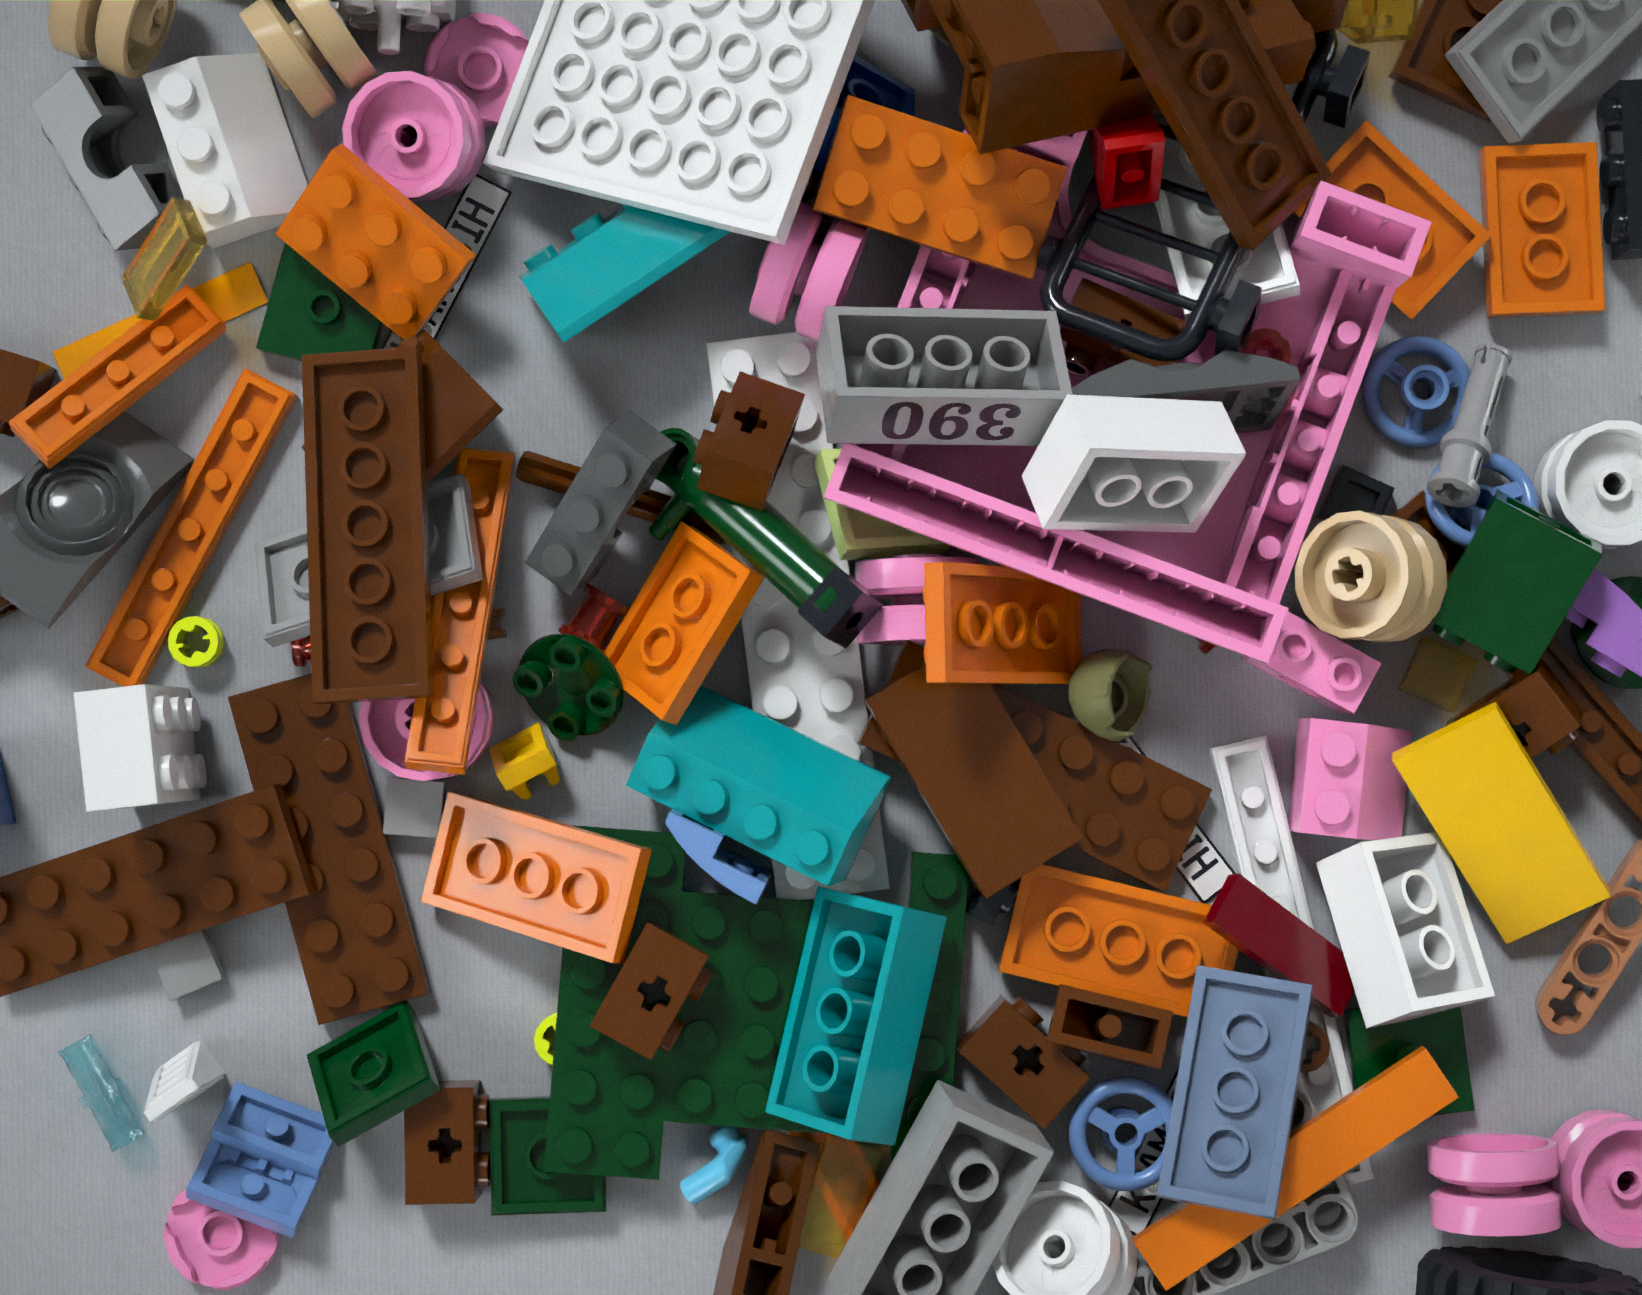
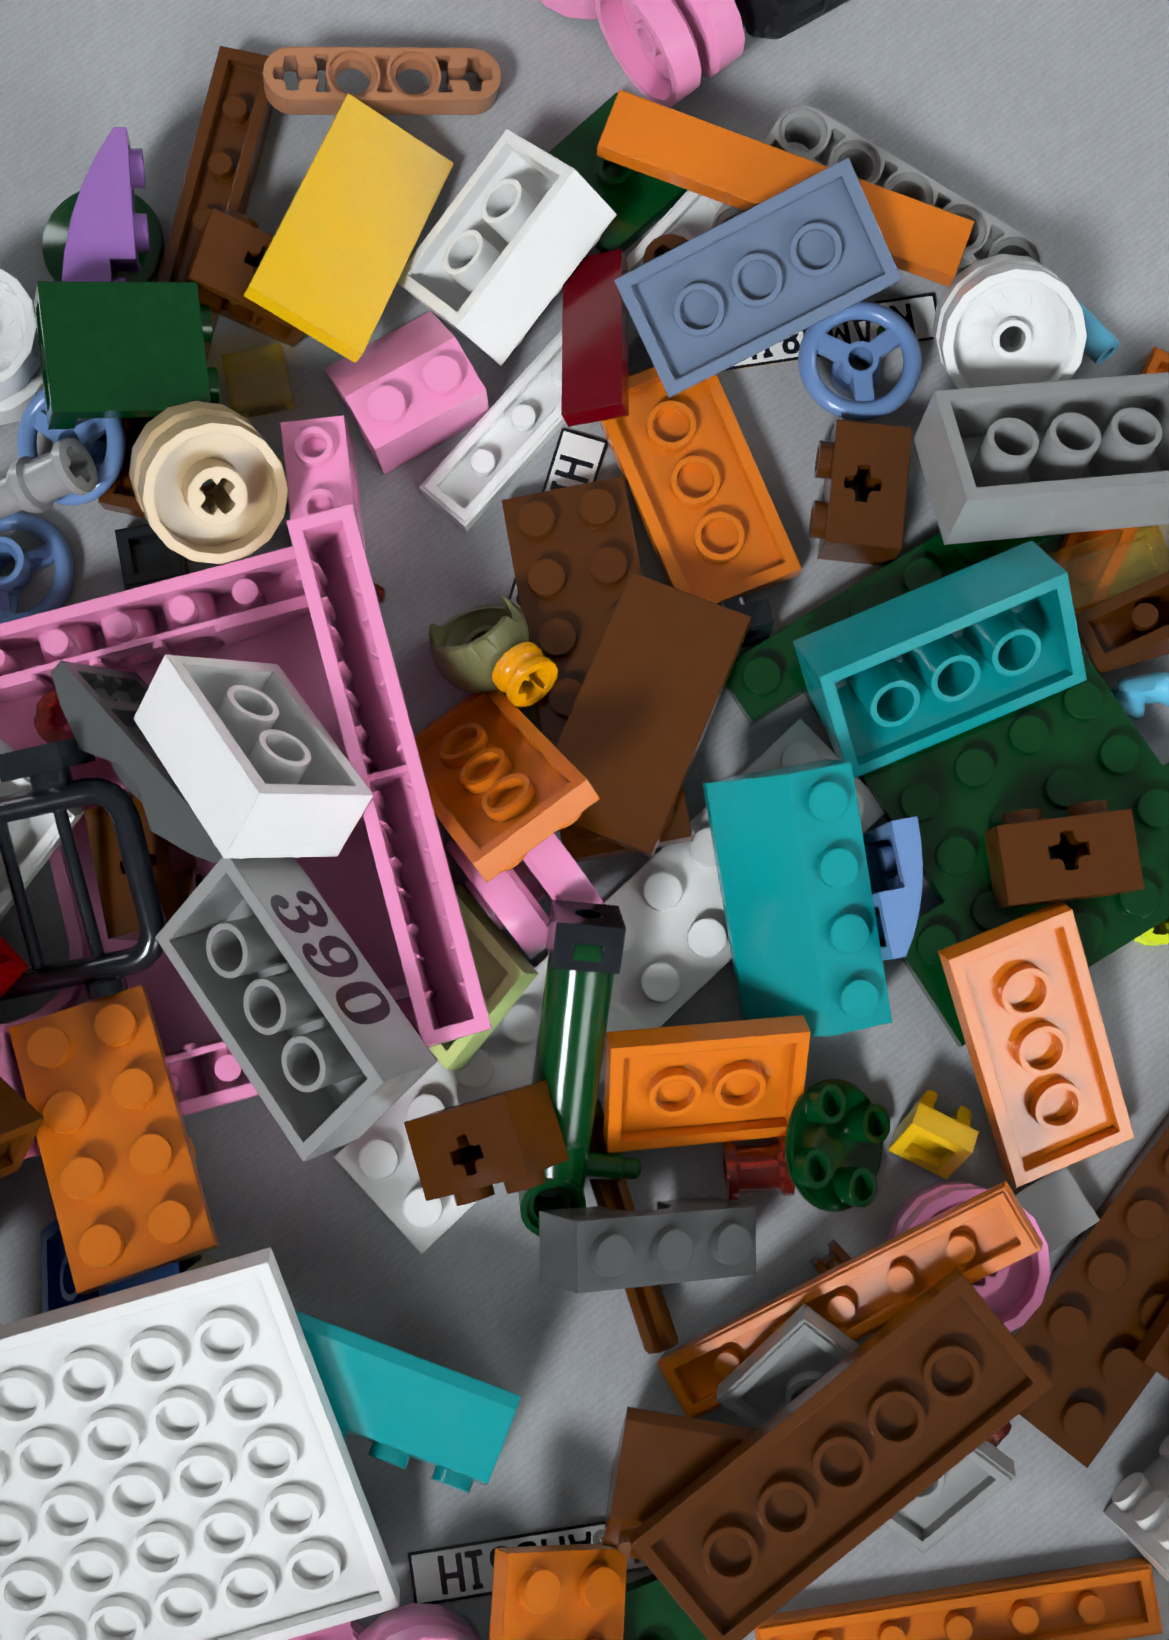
camera: 125 degrees left, 5 degrees down
(194, 624) = (1077, 1551): neon yellow bush -> none
(807, 270) = (284, 1206): bright pink wheel -> none
(1062, 706) = (524, 674): none -> light orange bush
(1109, 1027) = (780, 431): reddish brown slope -> none

